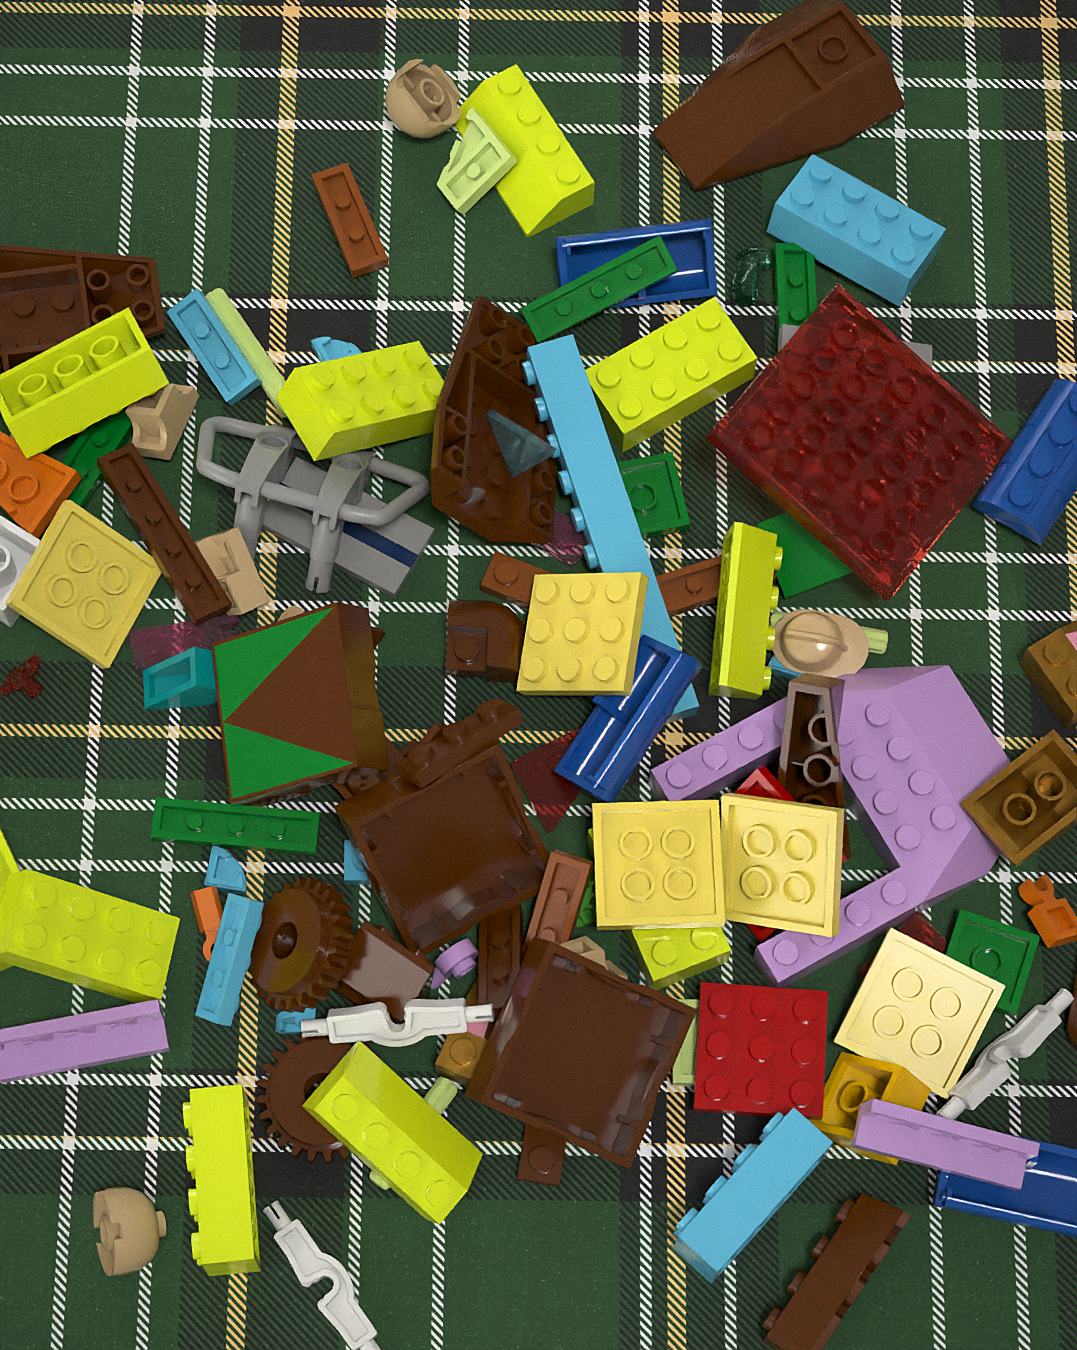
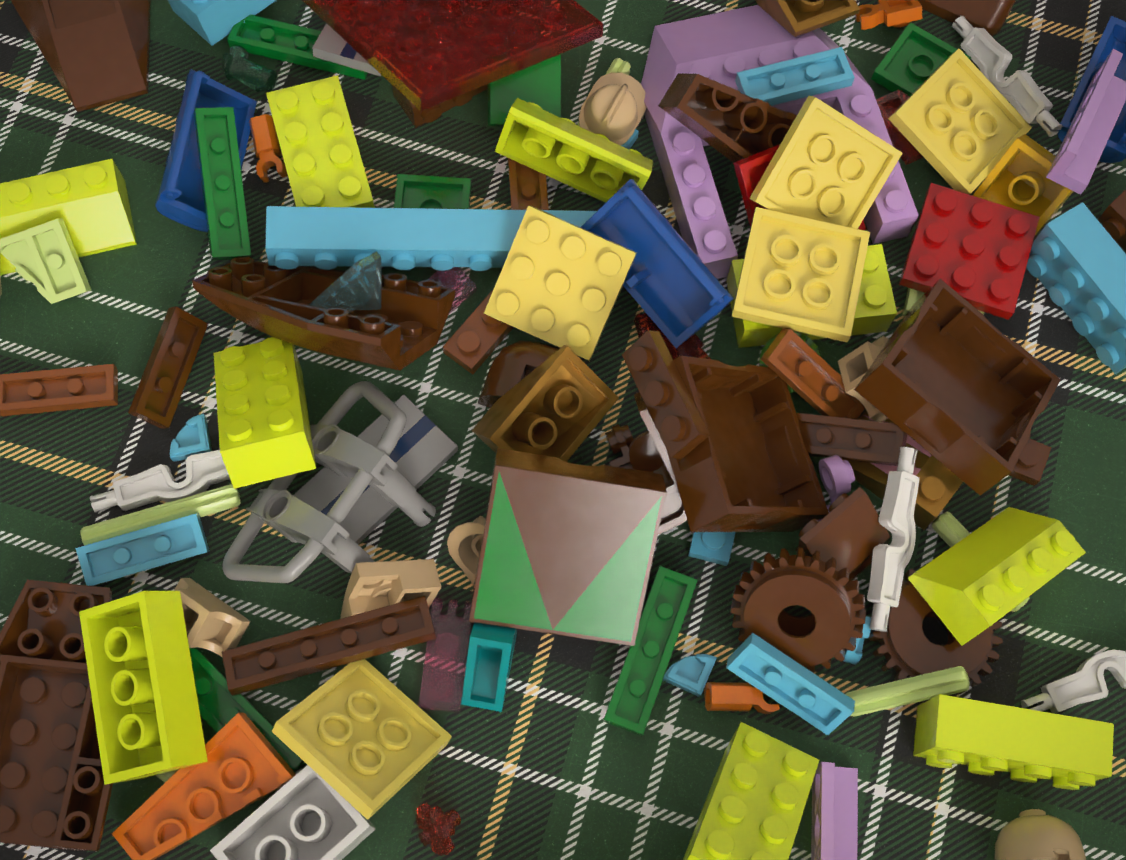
camera: 75 degrees left, 0 degrees up
(250, 1072) = (909, 690): none -> yellowish green axle
(278, 332) = (159, 483): none -> white piece
(399, 308) = (168, 368): none -> reddish brown plate
(433, 658) = (548, 409): none -> pearl gold slope
(663, 315) = (266, 146): none -> orange bar
(893, 809) = (797, 77): none -> medium azure plate

